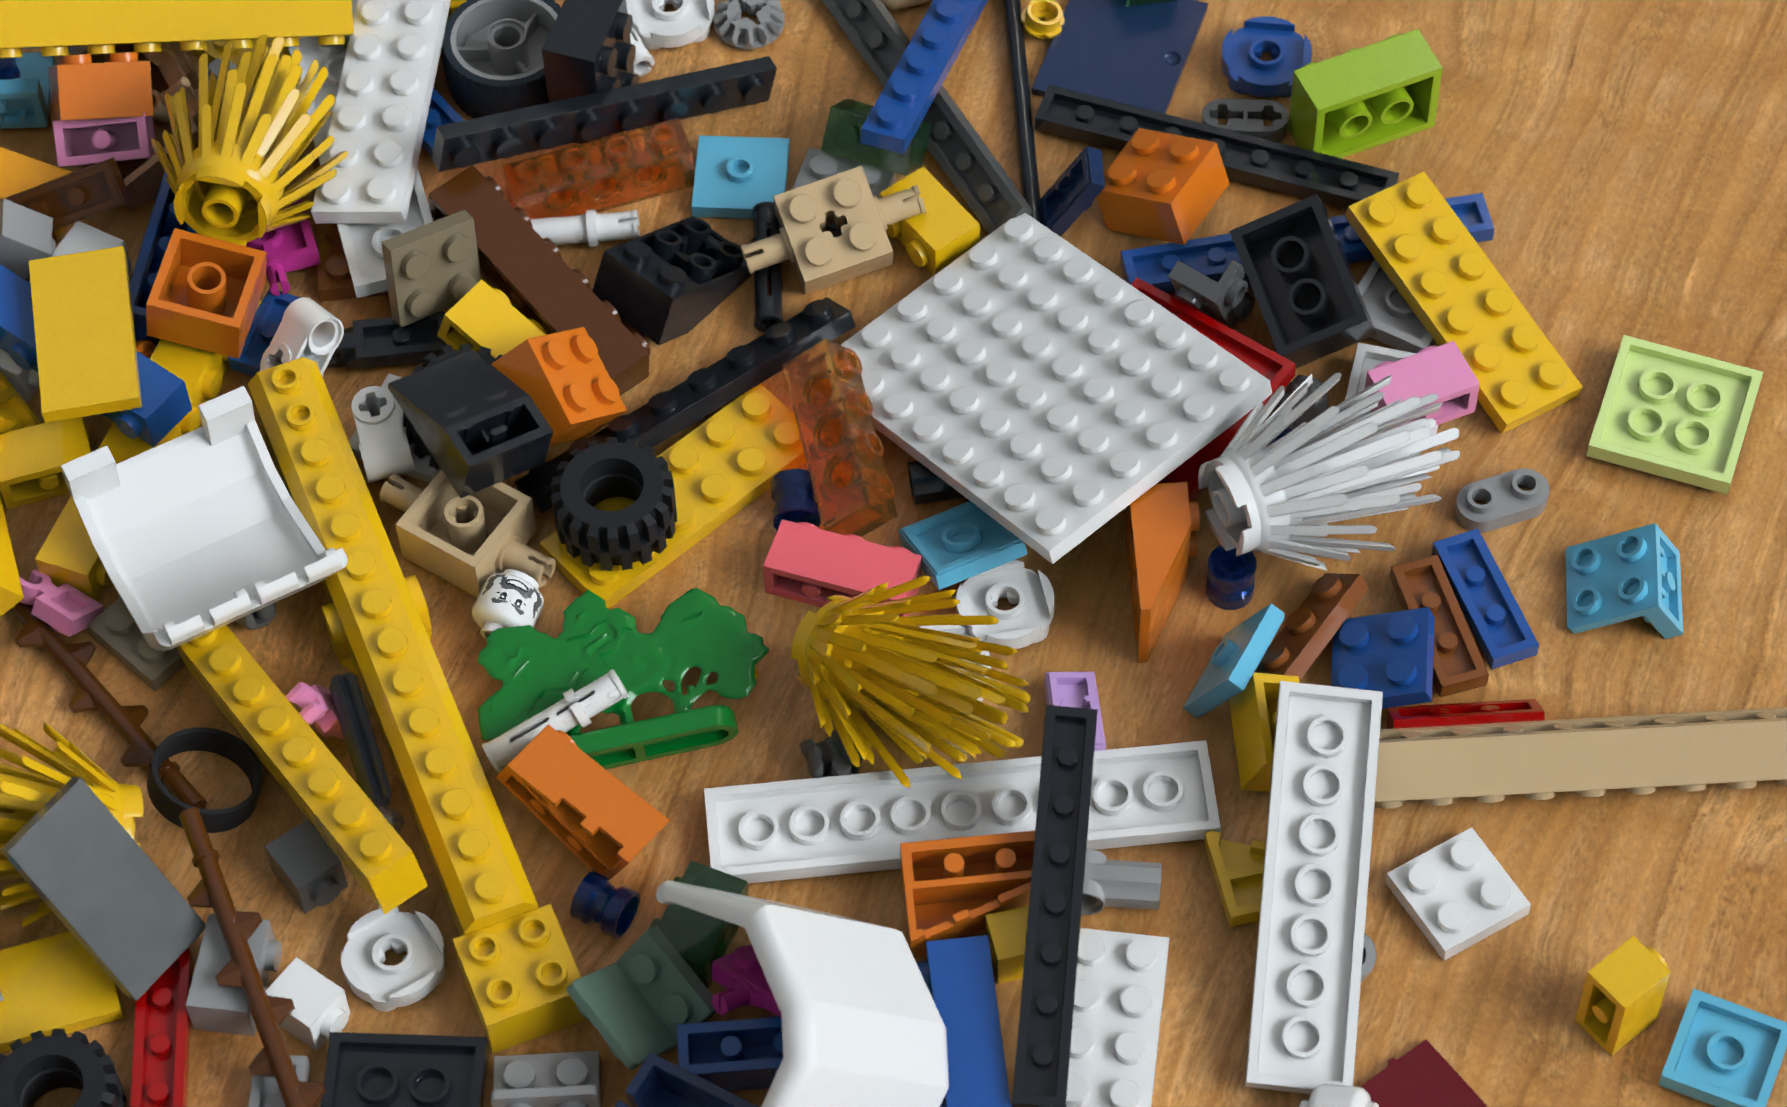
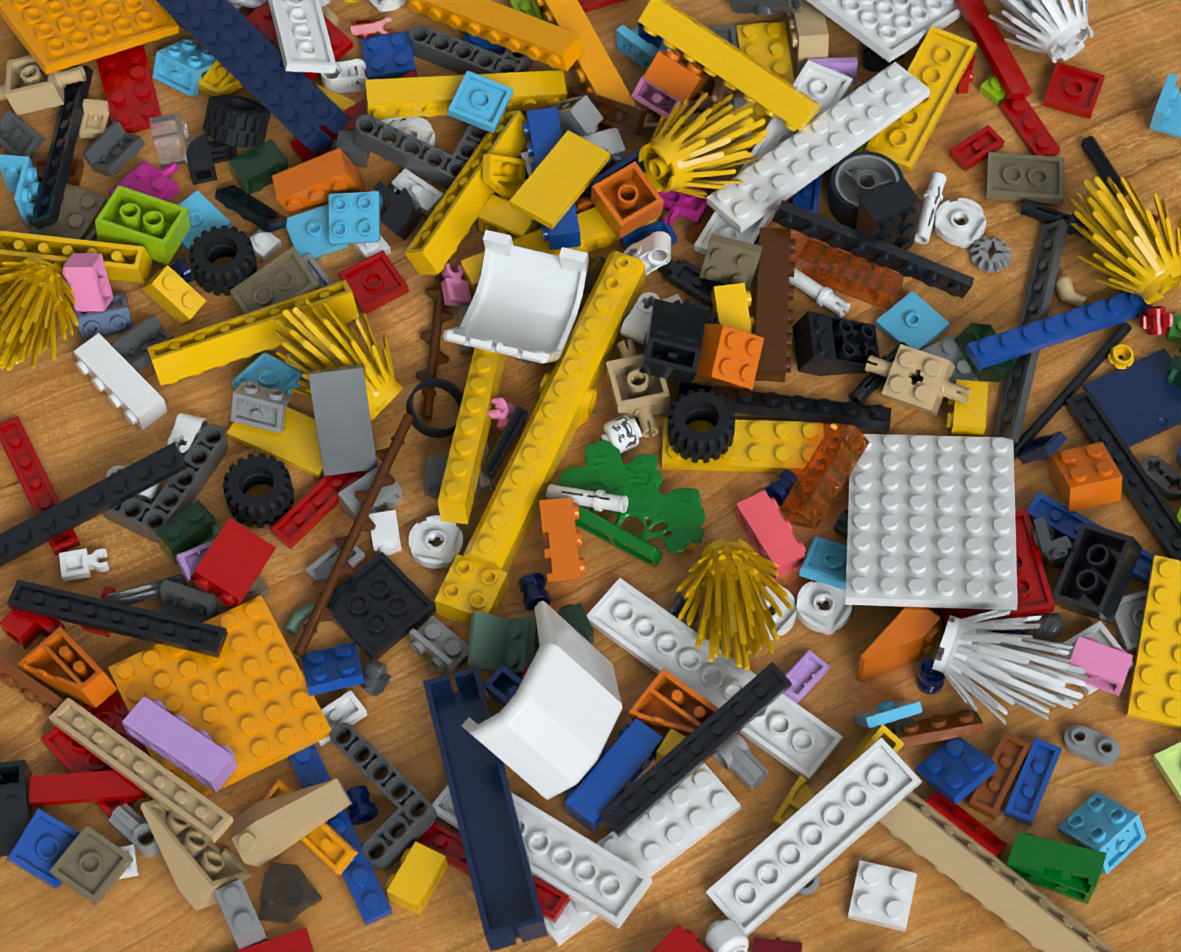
camera: 45 degrees right, 5 degrees up
(1629, 666) = (1057, 865): none -> green wedge

